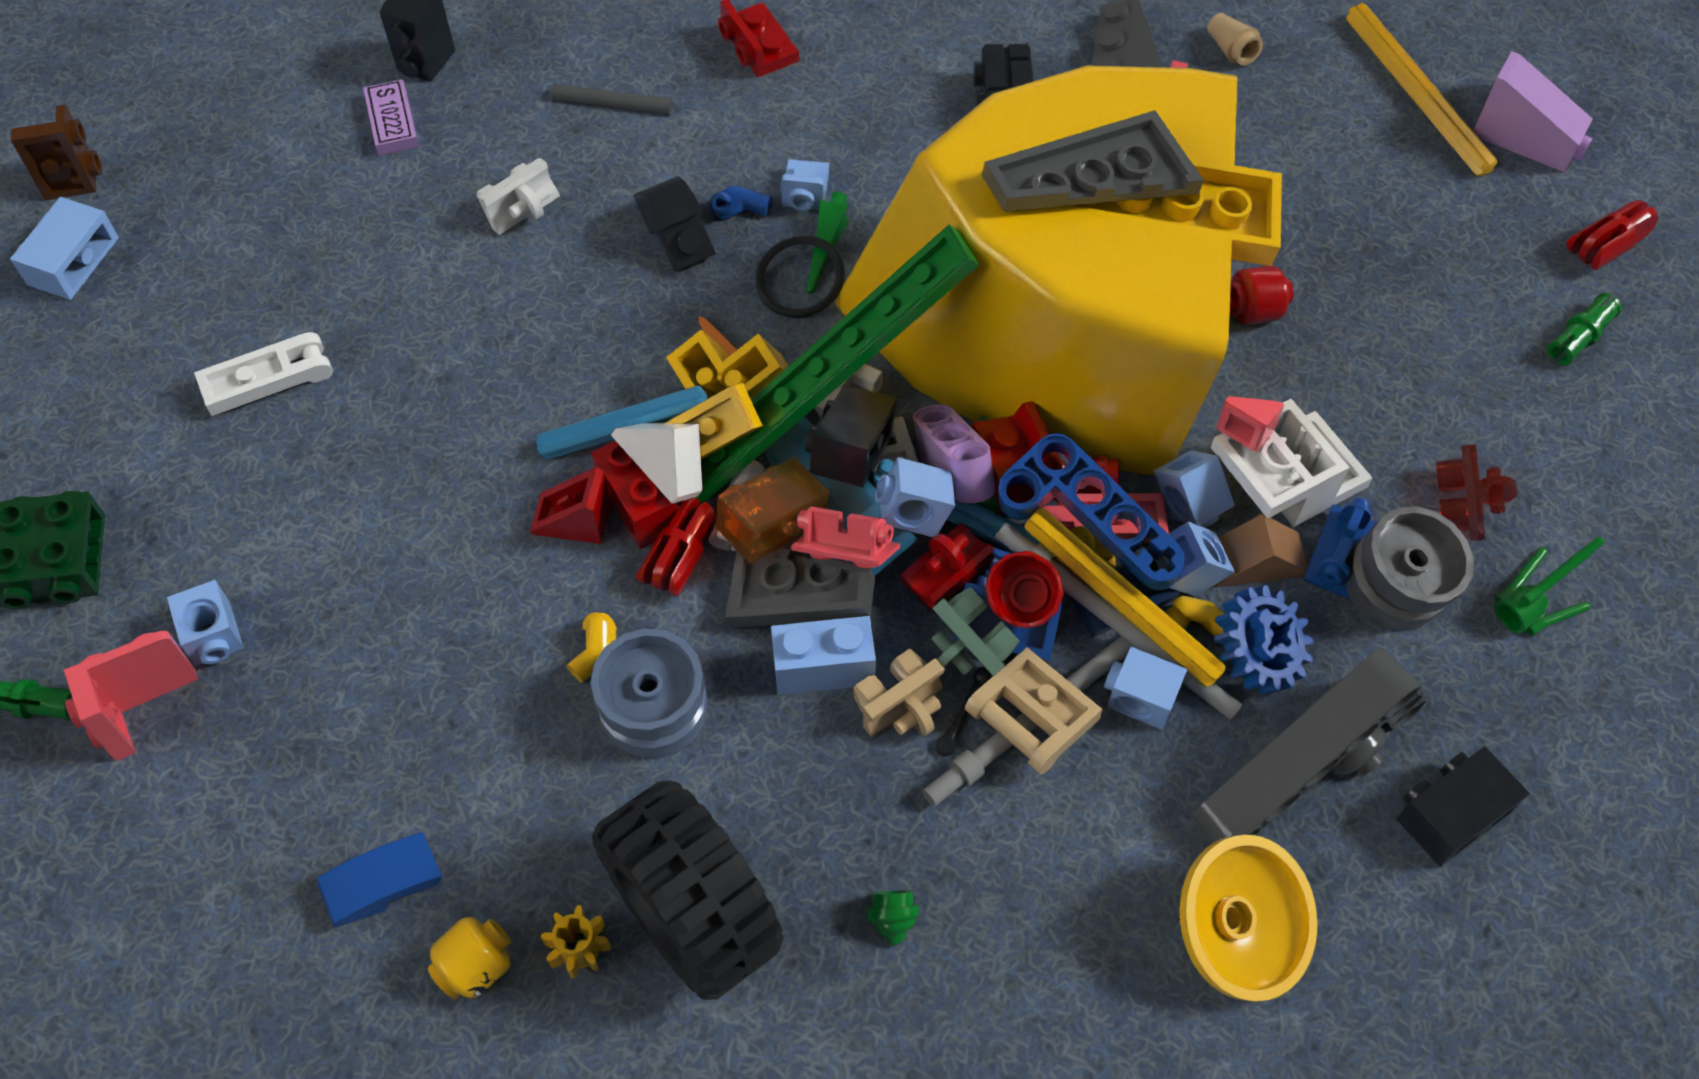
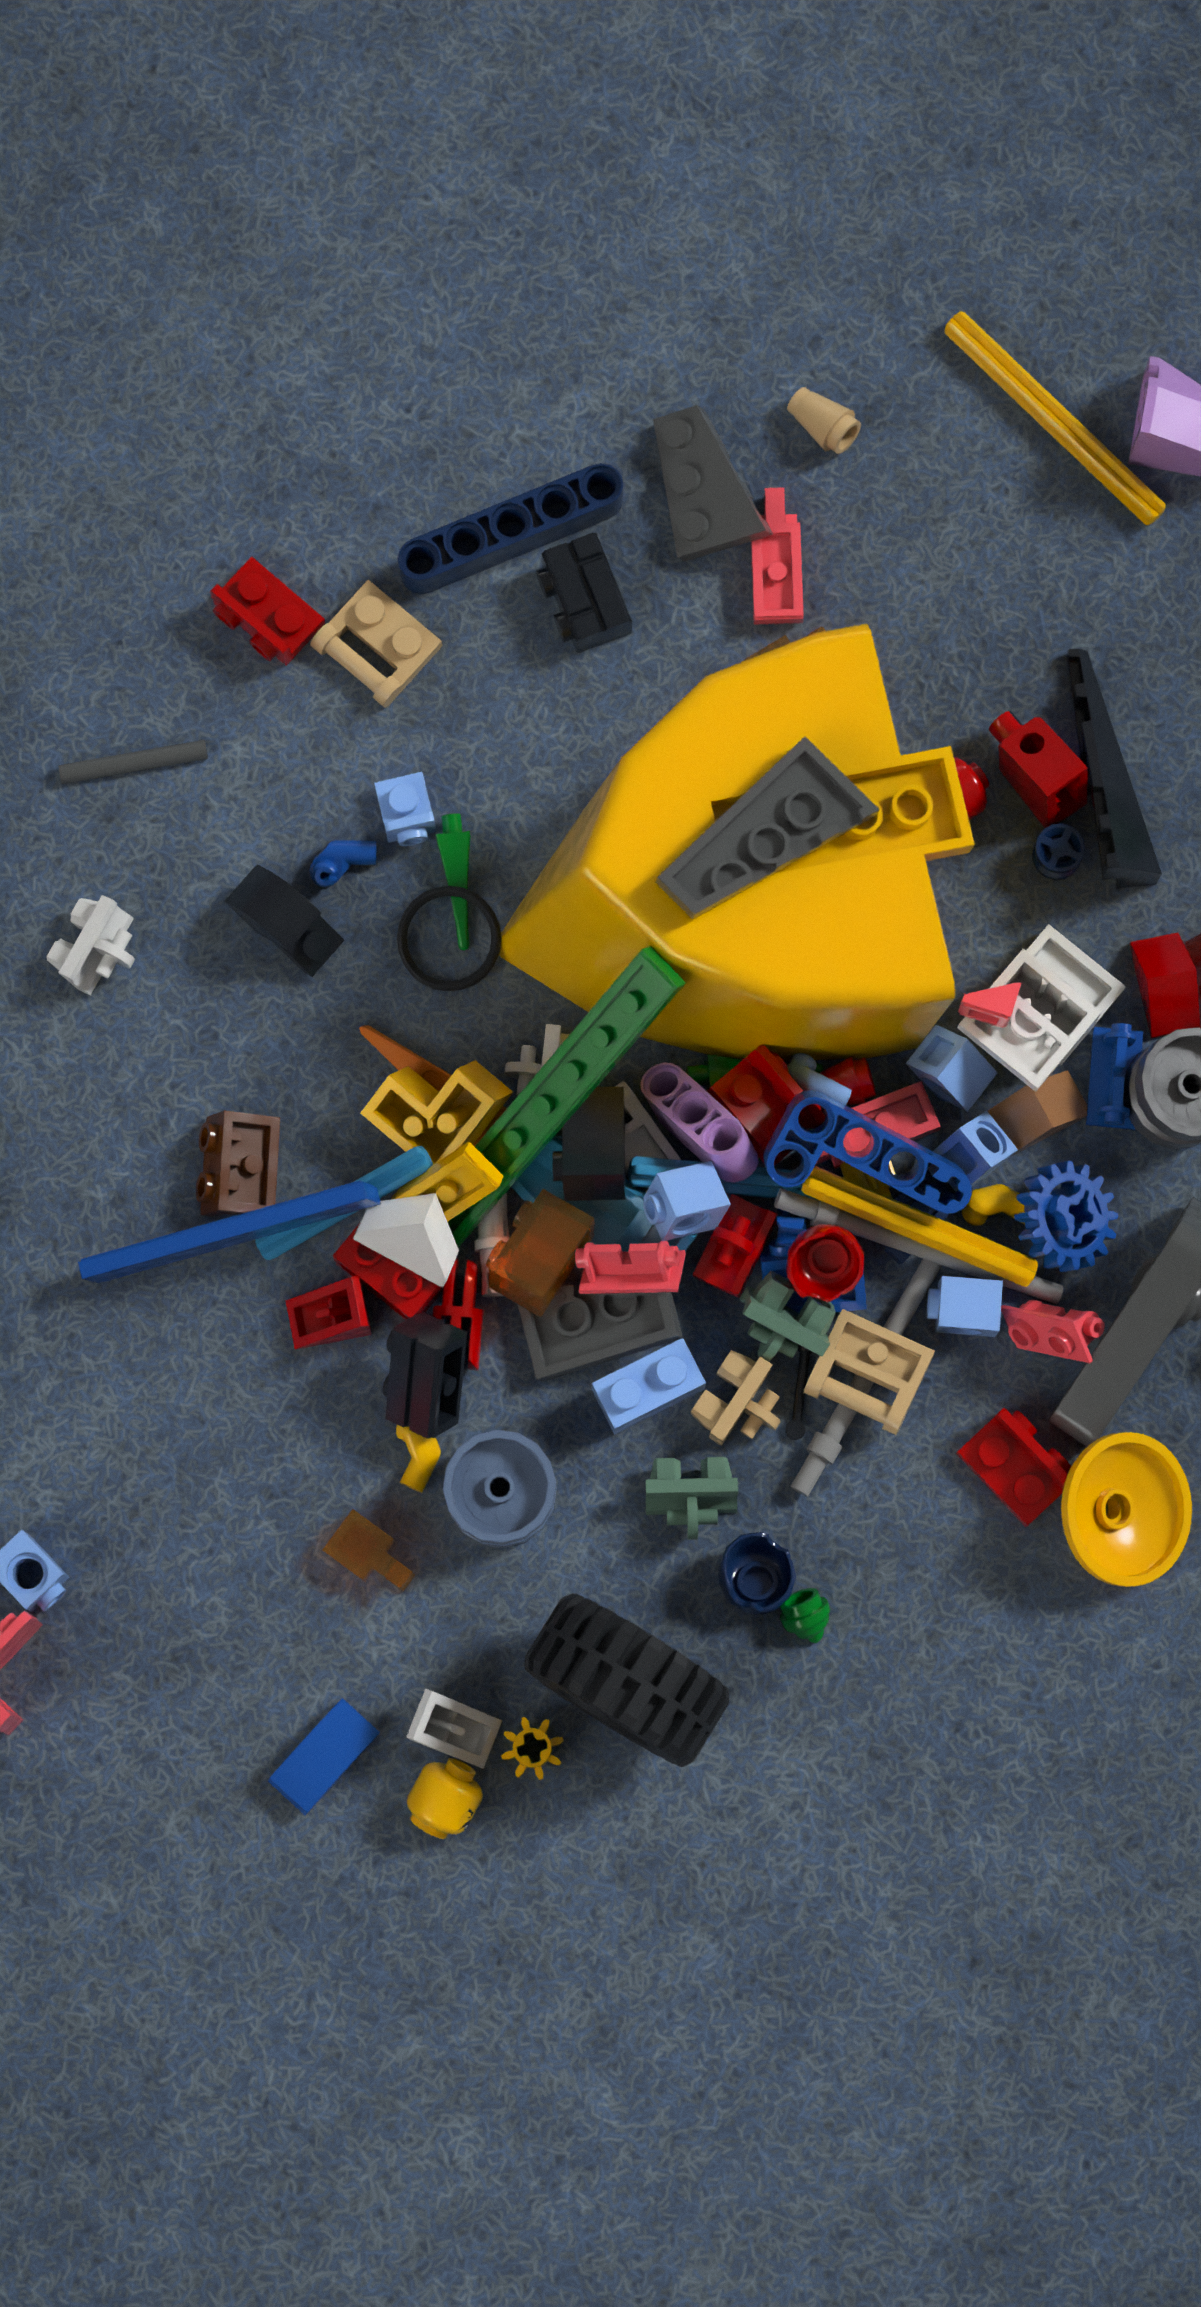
camera: 20 degrees left, 20 degrees up
(506, 708) = (364, 1548): none -> clear orange plate
(507, 892) = (454, 1728): none -> white slope
(515, 408) = (229, 1231): none -> blue tile
(555, 377) = (238, 1163): none -> reddish brown bracket
(625, 571) = (425, 1375): none -> black brick
(824, 764) = (691, 1499): none -> sand green hips
(840, 72) = (385, 630): none -> tan plate
(858, 853) = (756, 1573): none -> dark blue hair
(961, 33) = (524, 509): none -> dark blue beam
(1147, 845) = (1016, 1465): none -> red bracket
(1222, 728) = (1052, 1330): none -> coral hinge
(1334, 354) = (1063, 842): none -> dark blue wheel
(1344, 298) = (1040, 768): none -> red torso
(1396, 327) = (1120, 827): none -> black wedge
(1410, 482) = (1166, 984): none -> red slope

